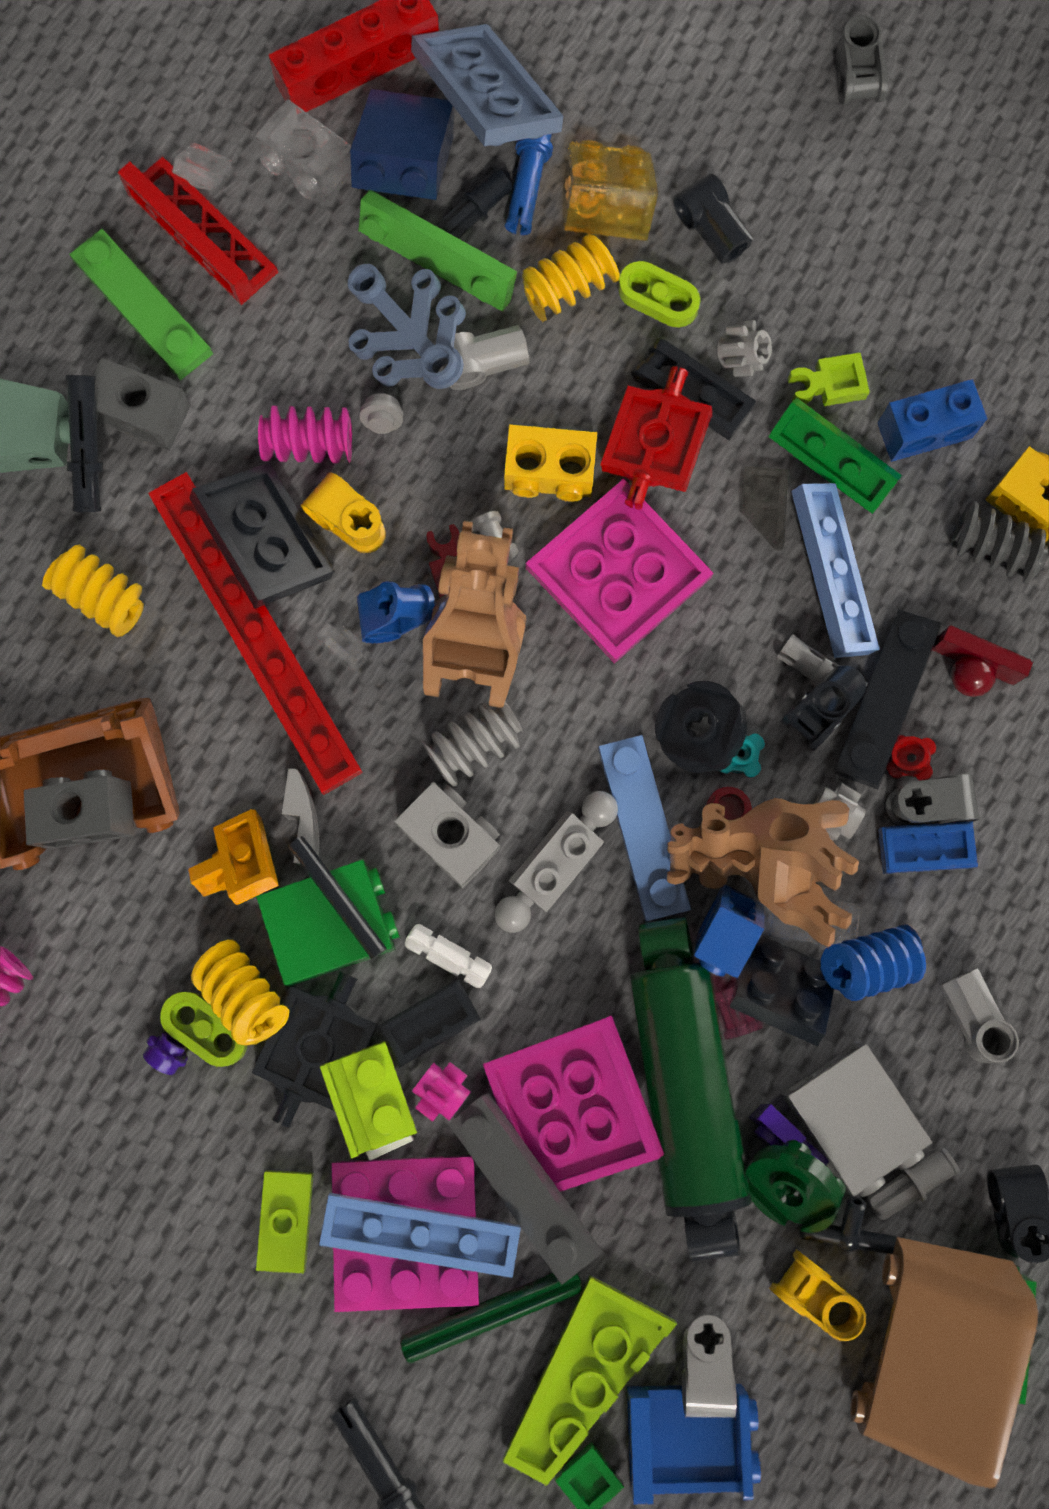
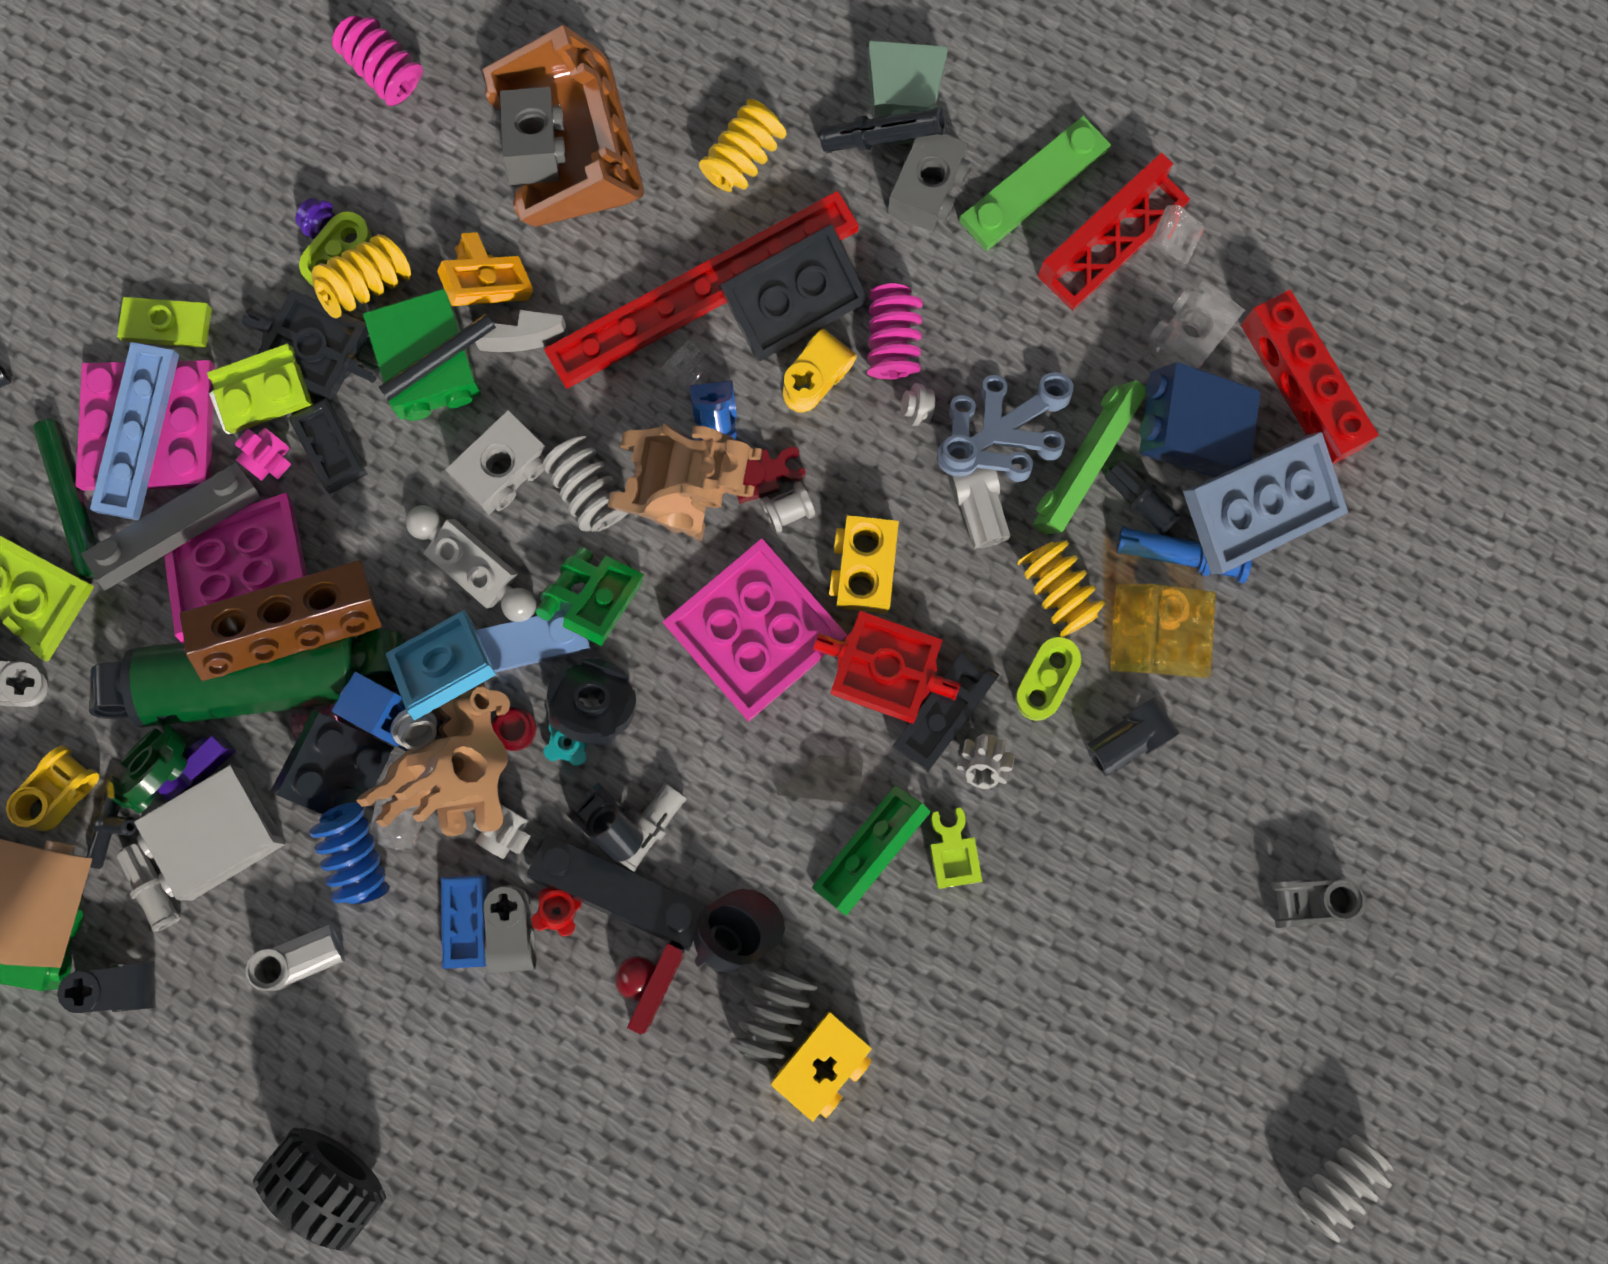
camera: 90 degrees right, 0 degrees up
(448, 955) = (389, 464): white axle -> none
(593, 718) = (601, 601): none -> green plate
(620, 1022) = (279, 620): none -> reddish brown brick
(684, 865) = (439, 665): none -> dark azure plate
(750, 890) = (414, 733): none -> light grey plate
(835, 570) = (749, 843): medium blue plate -> none
(924, 577) = (737, 930): none -> black piece
(931, 420) = (907, 952): blue brick -> none

